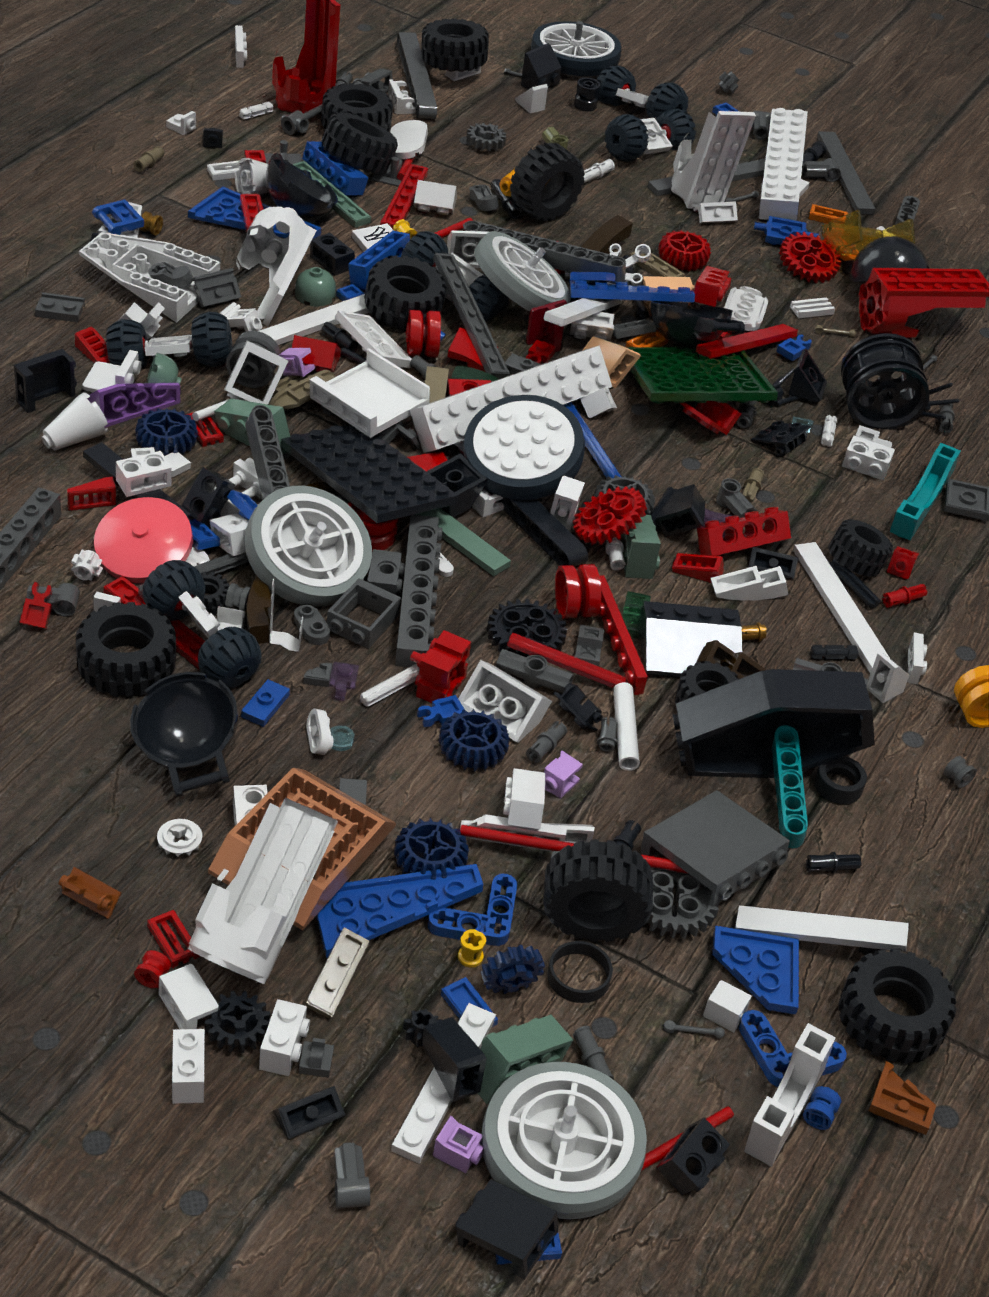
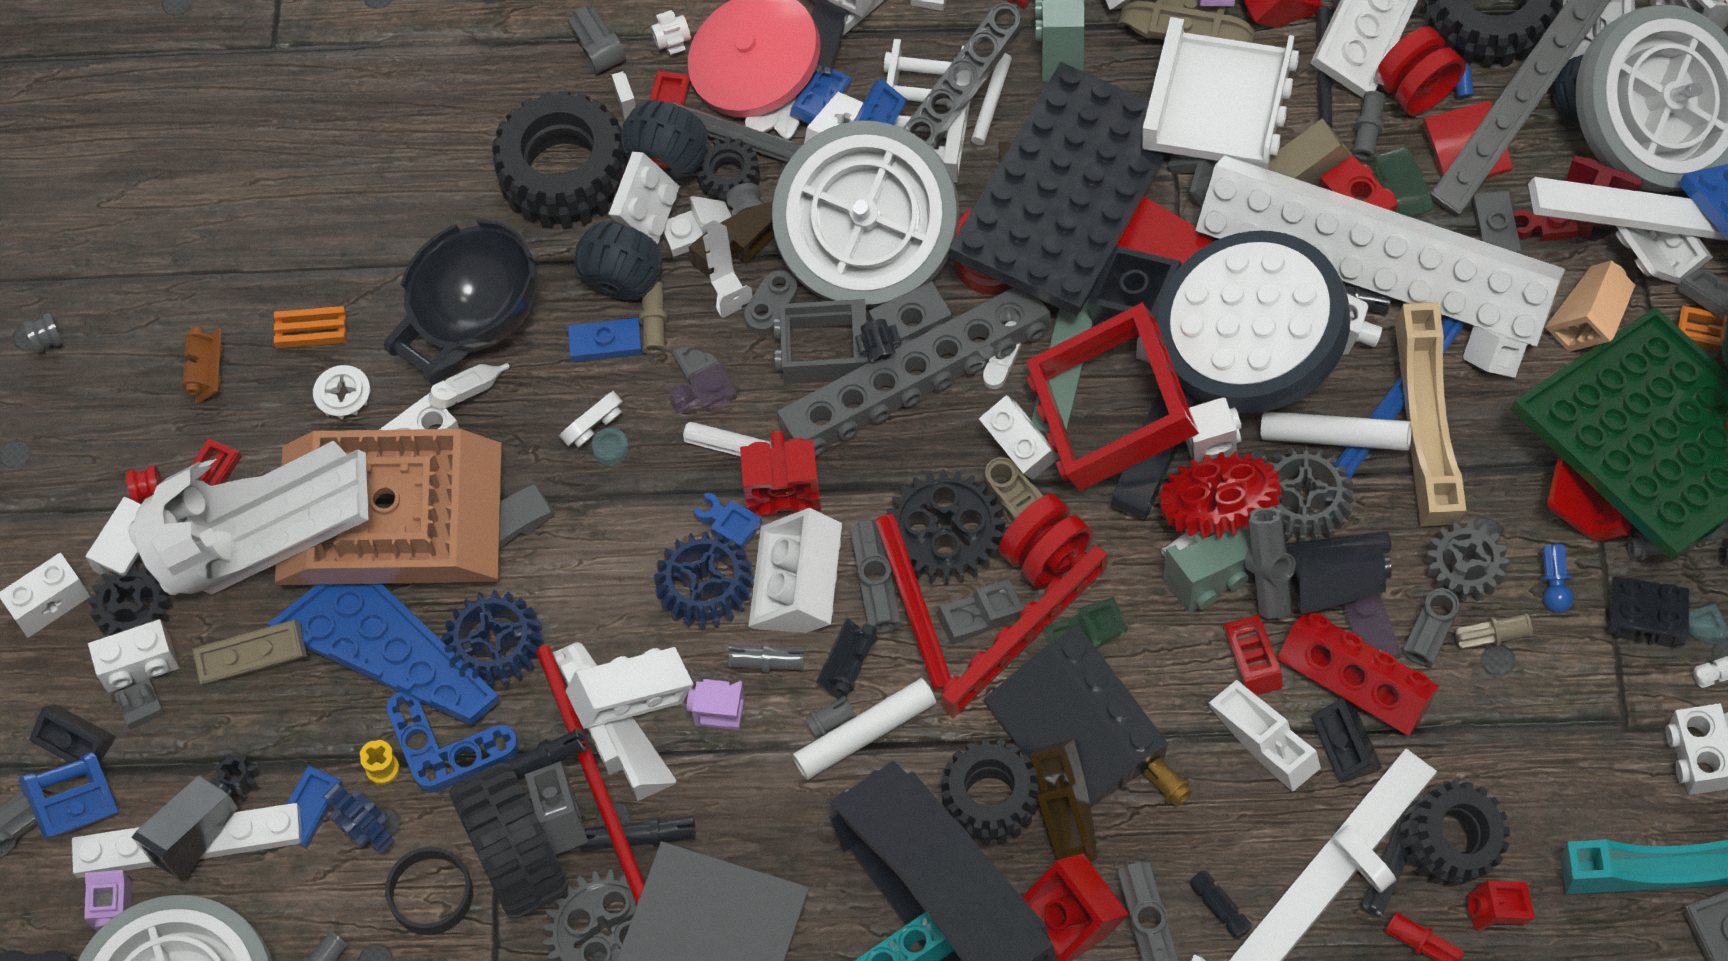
camera: 70 degrees right, 20 degrees up
(37, 611) = (561, 37): red plate -> none
(109, 827) = (310, 321): none -> orange tile
(203, 494) = (869, 59): black brick -> none
(241, 772) = (464, 385): none -> white piece
(276, 674) = (653, 320): none -> dark tan pin
(374, 1127) = (72, 807): none -> blue plate
(398, 580) = (878, 340): none -> black gear
(502, 570) = (1019, 437): none -> white brick
(519, 1048) = (260, 891): sand green wedge -> none
(523, 483) = (1135, 446): none -> red window
(530, 590) = (1013, 495): none -> dark tan piece
(539, 859) = (549, 753): none -> black pin
(606, 462) = (1336, 430): none -> white piece
(661, 454) = (1434, 463): none -> tan arch
(665, 519) = (1270, 562): none -> dark grey piece
(707, 470) = (1467, 543): none -> dark grey gear
(747, 459) = (1558, 596): none -> blue axle
(852, 583) = (1364, 859): none -> white beam

